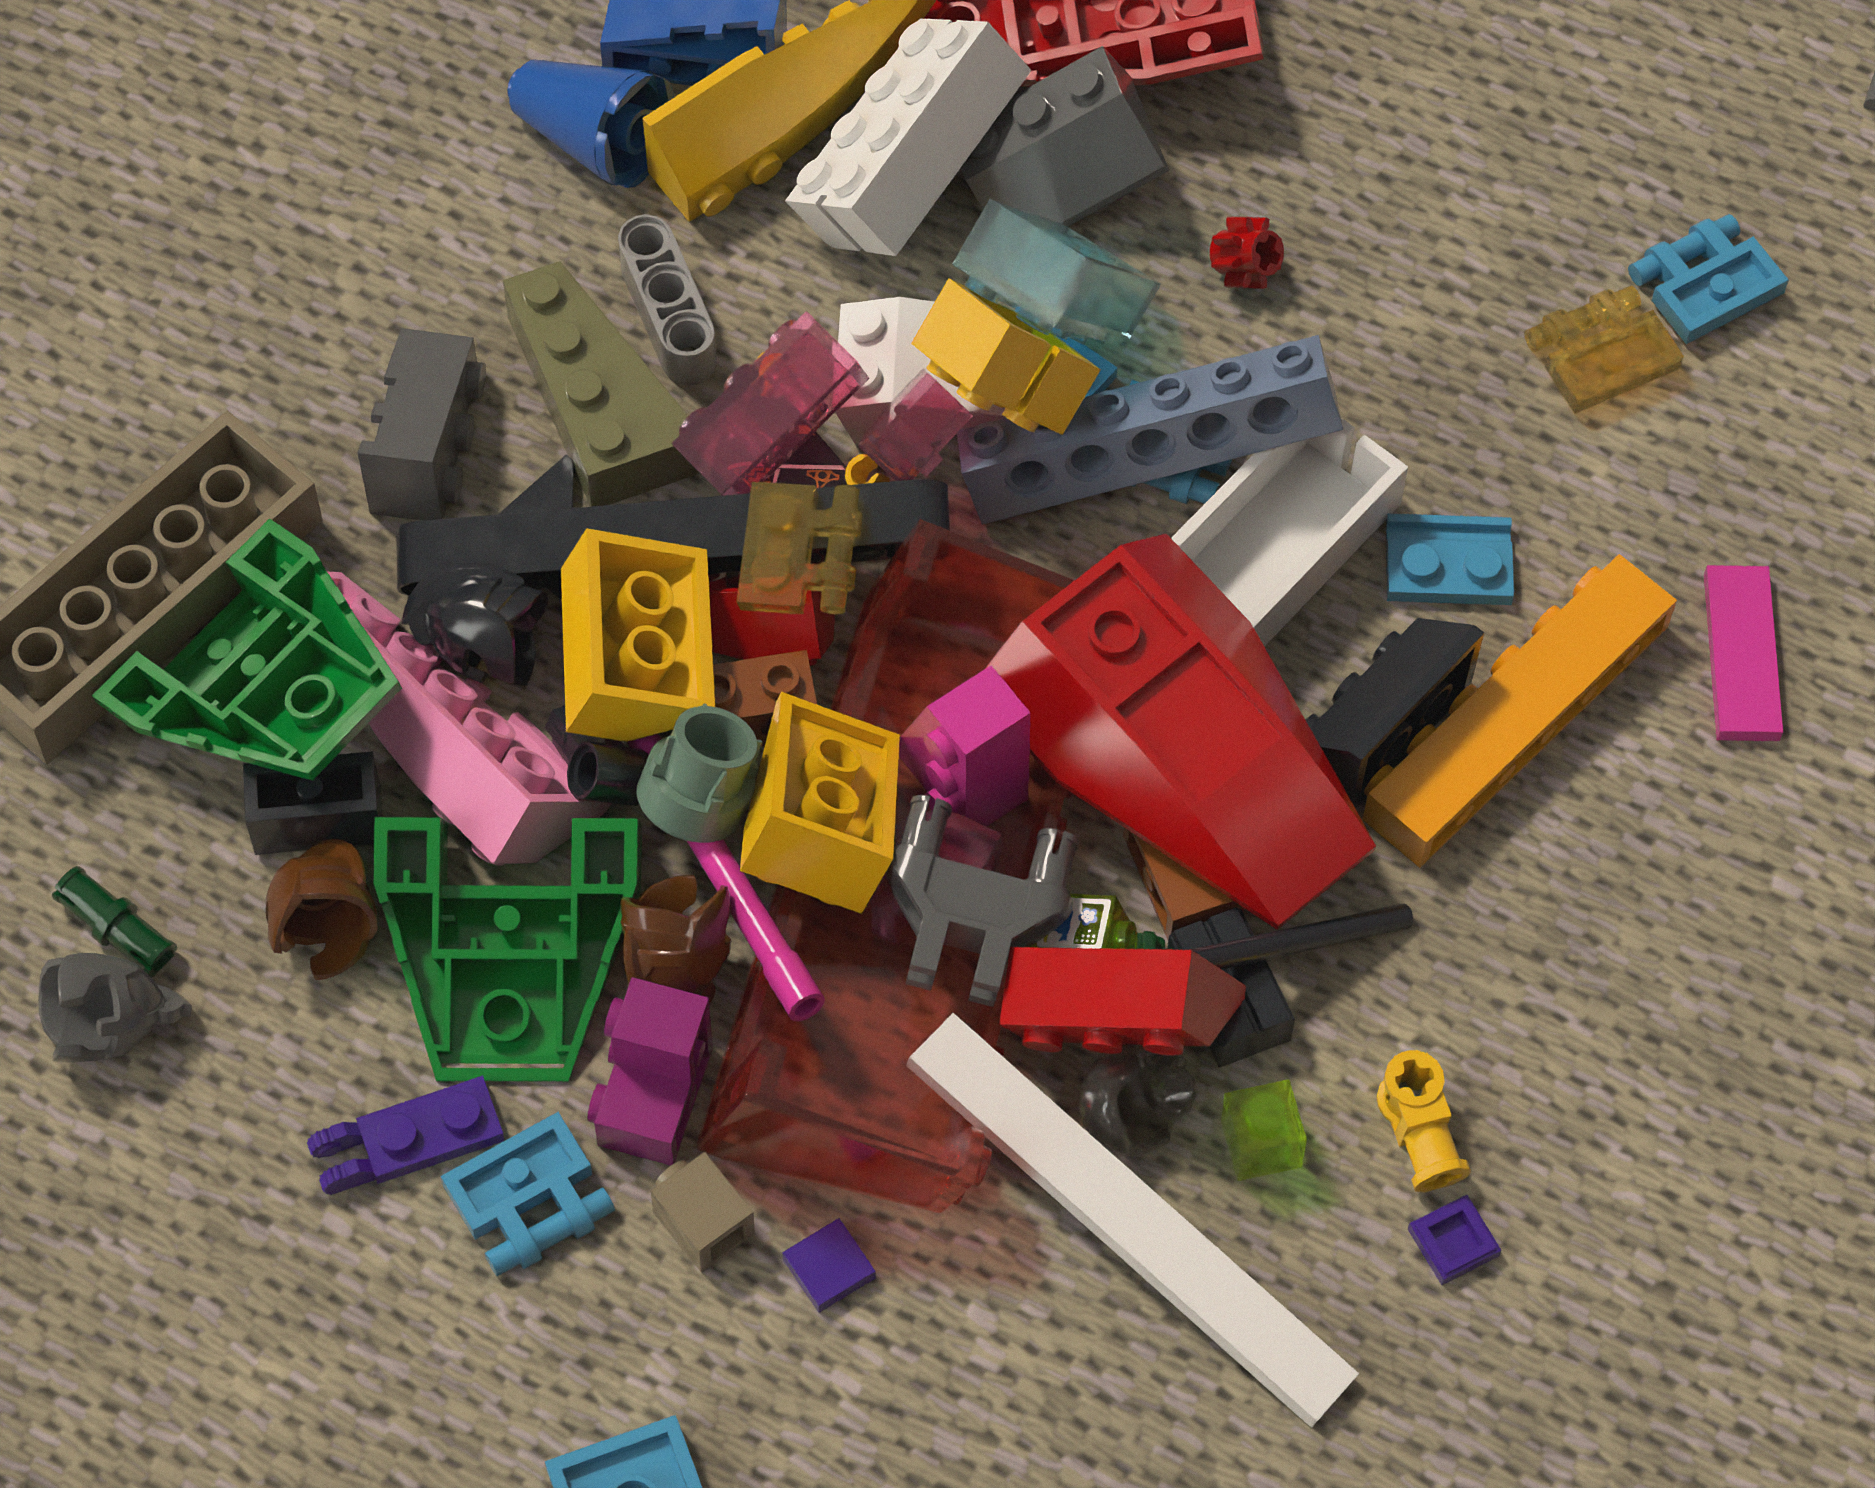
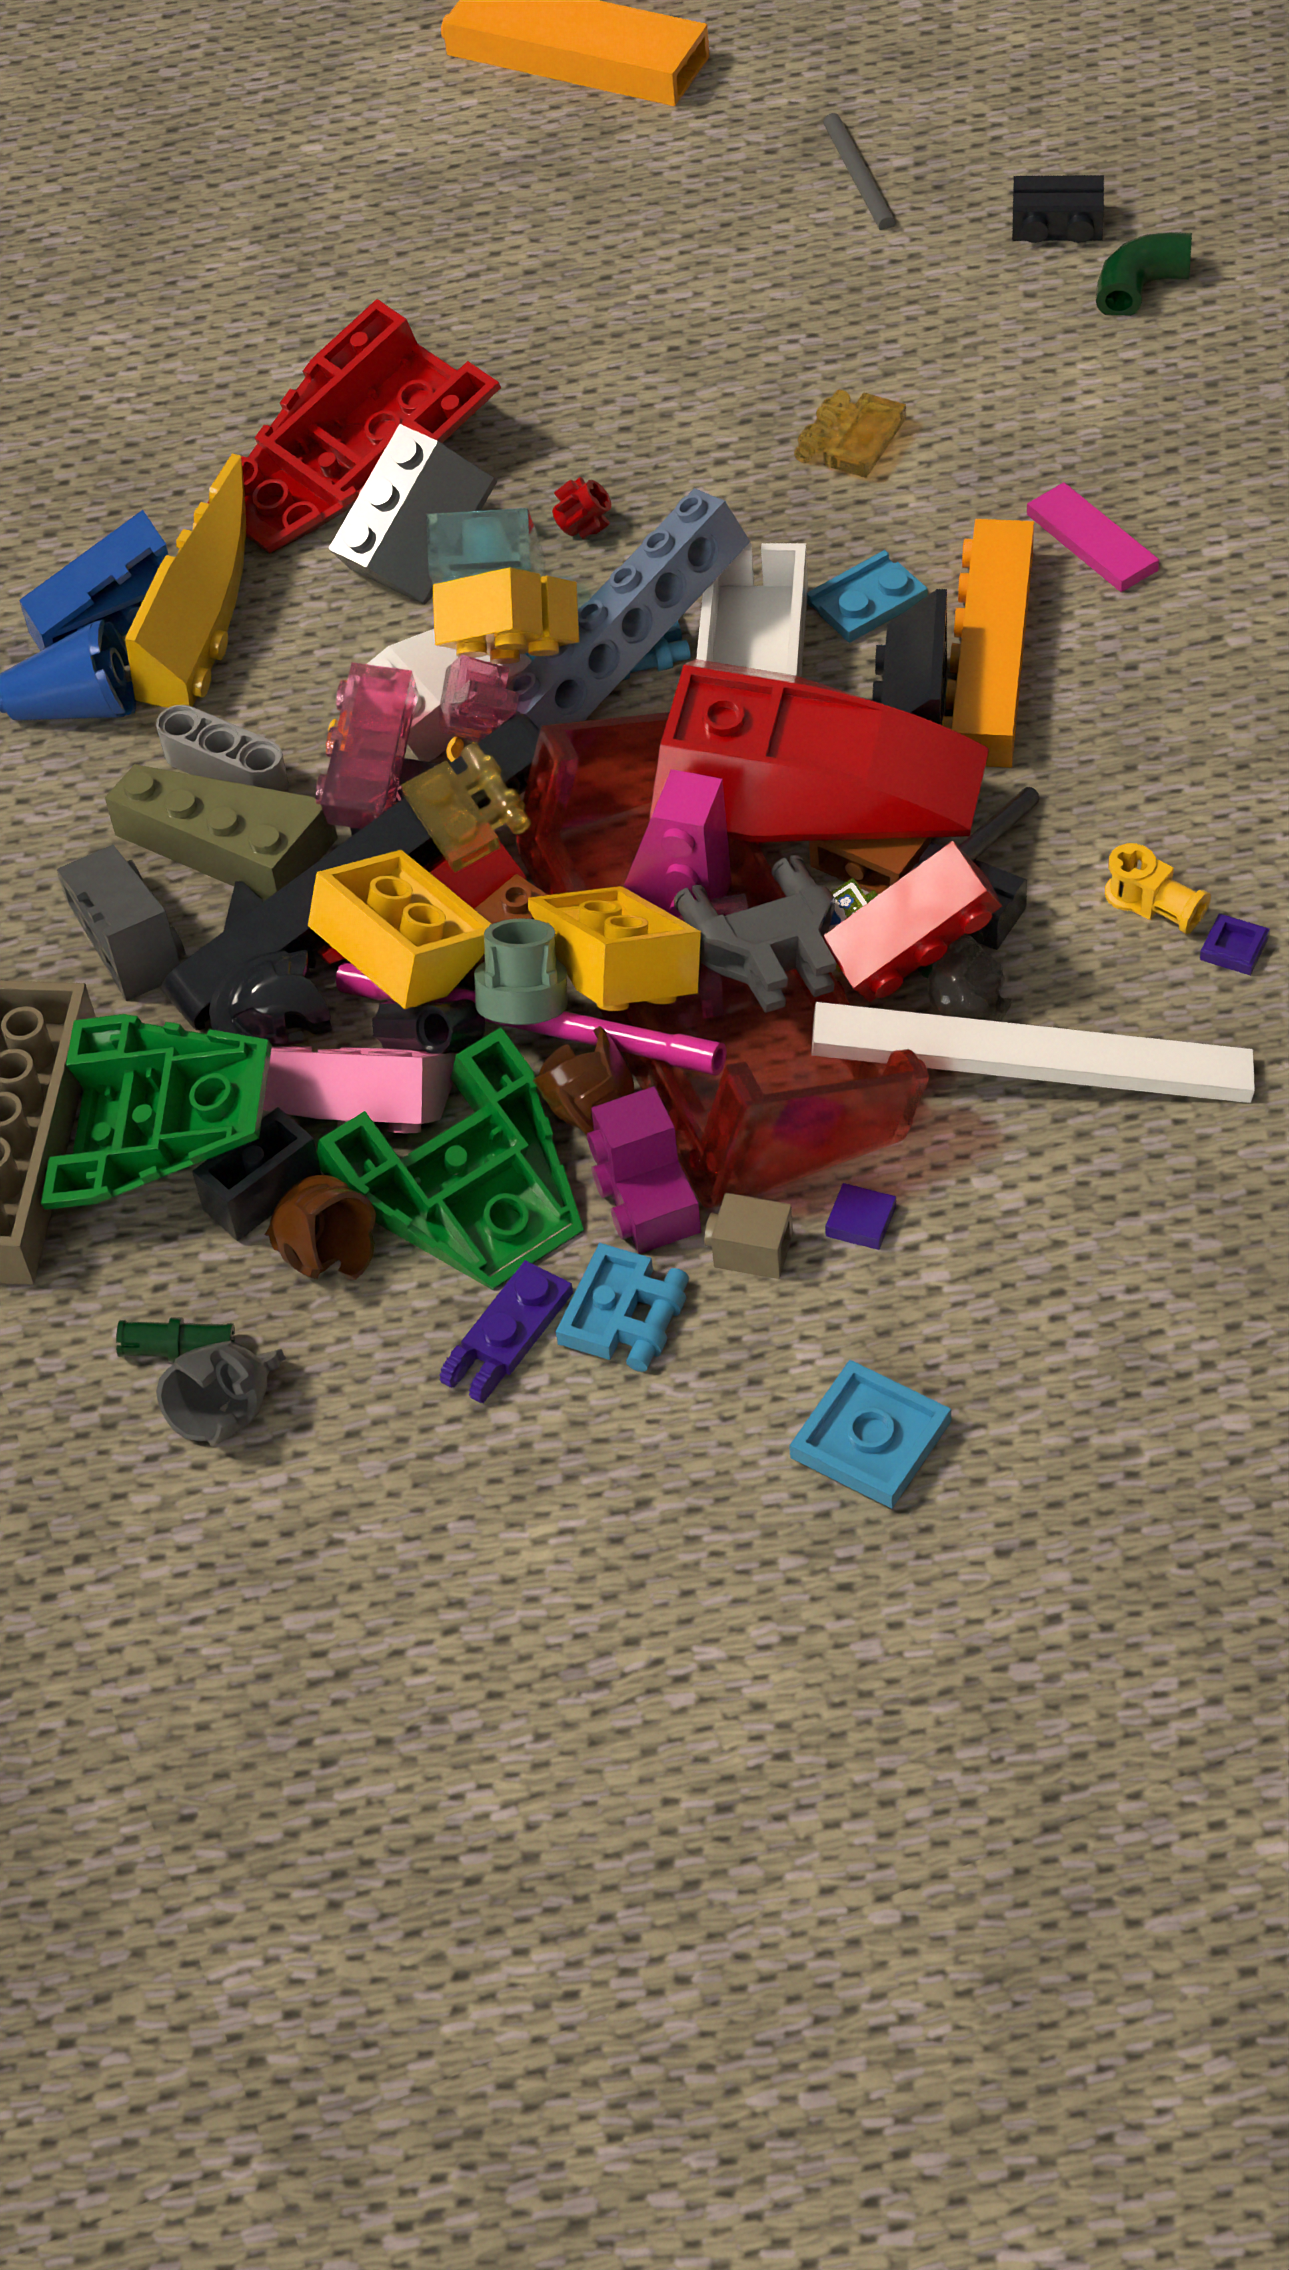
camera: 30 degrees left, 10 degrees down
(907, 135) = (307, 559): white piece -> none
(1263, 1130) = (1065, 954): clear neon green brick -> none
(1715, 290) = (888, 364): dark azure plate -> none

